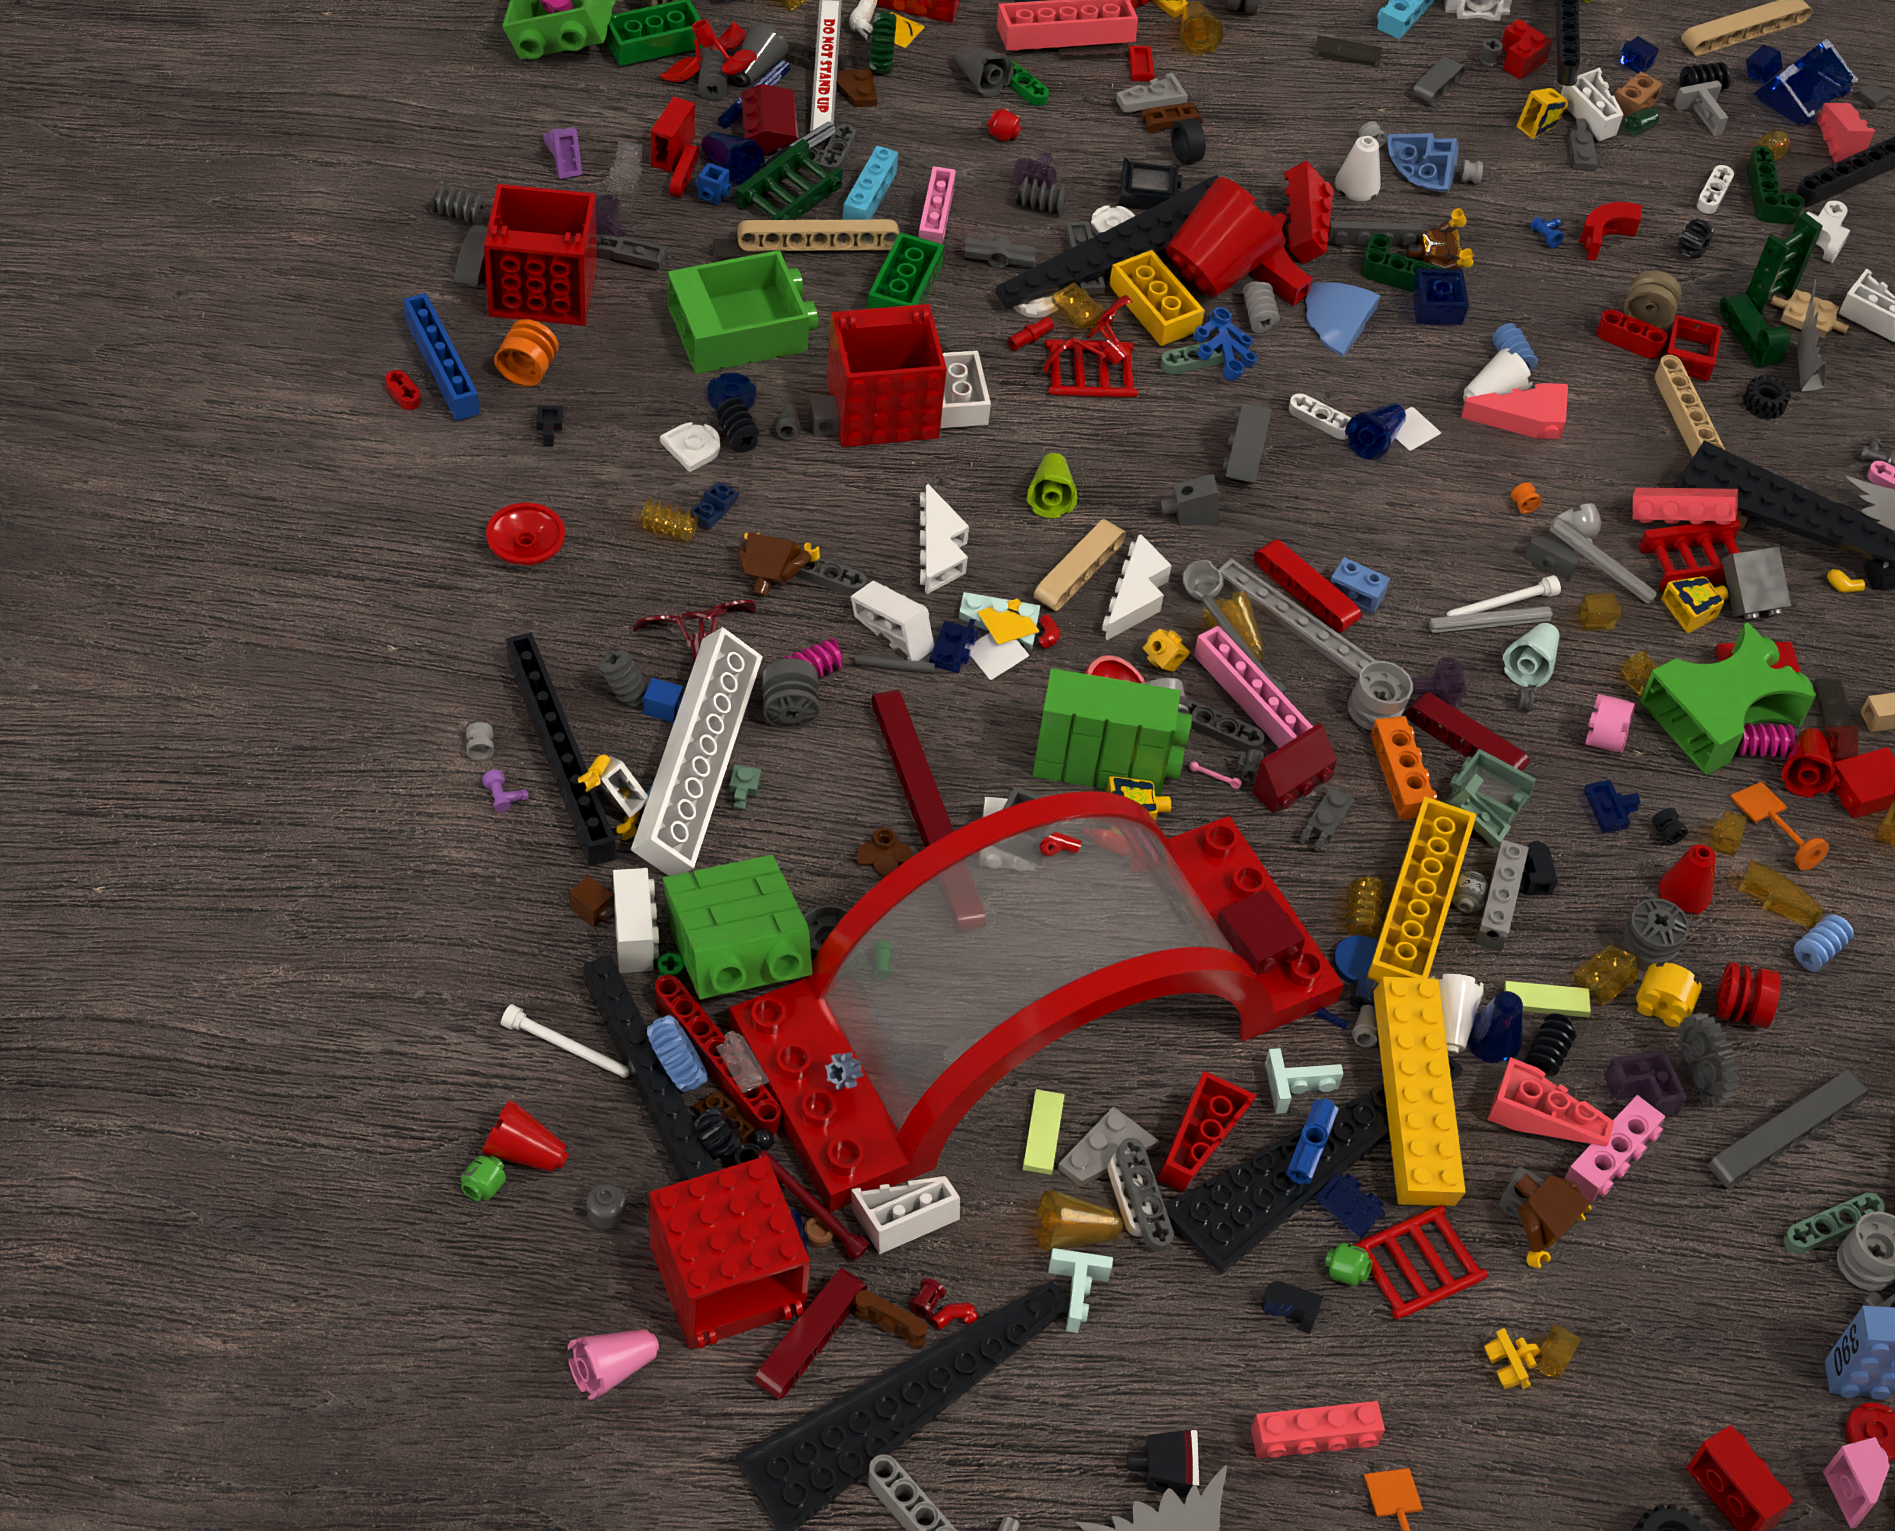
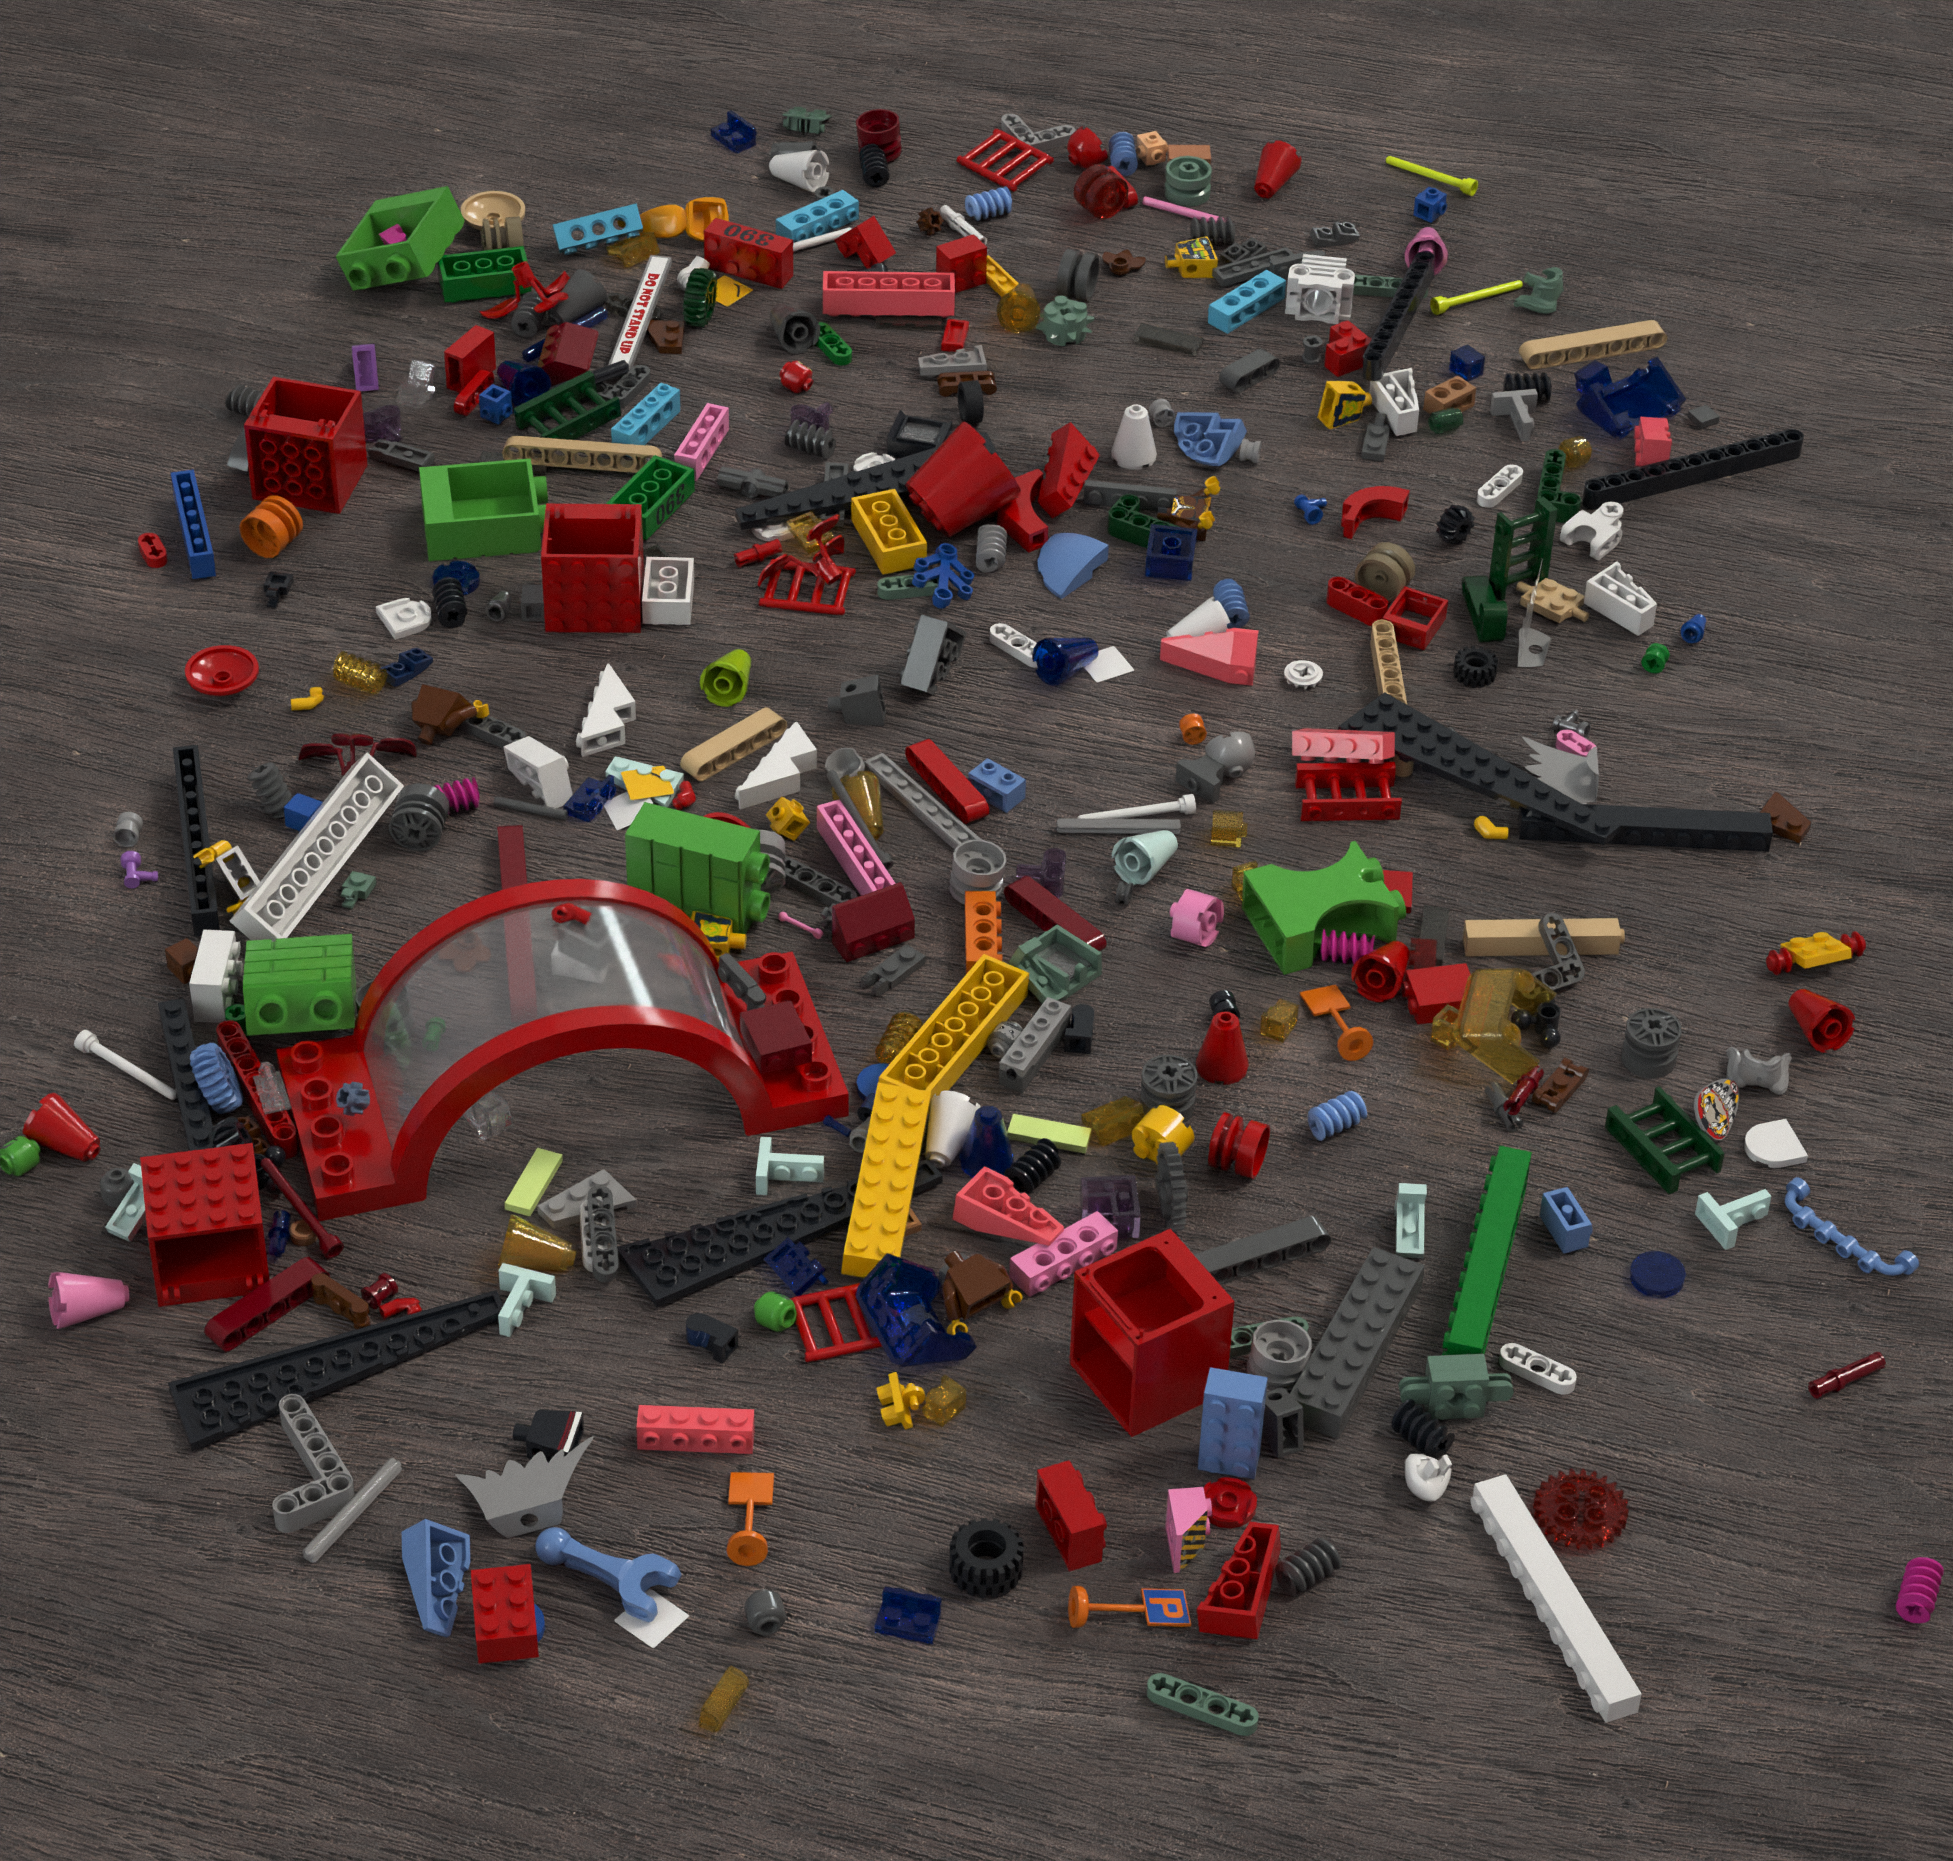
camera: 15 degrees right, 10 degrees down
(625, 559) = (310, 702): none -> yellow arm
(631, 1229) = (131, 1211): none -> light aqua bracket
(905, 1212) = (383, 1223): white wedge -> none
(1205, 872) = (741, 982): none -> dark grey hinge
(1206, 1122) = (677, 1192): red wedge -> none
(1246, 40) = (1065, 321): none -> sand green brick
(1308, 1153) = (772, 1209): blue piece -> none
(1487, 1260) = (899, 1310): none -> clear blue windscreen
(1603, 561) = (1244, 785): light grey axle -> none
(1610, 807) = (1174, 988): clear blue hinge -> none
(1616, 421) = (1296, 669): none -> white gear
(1694, 601) = (1327, 829): yellow torso -> none
(1756, 583) = (1391, 816): dark grey brick -> none
(1763, 1252) = (1149, 1330): none -> red piece
(1780, 895) = (1308, 1072): clear yellow slope -> none

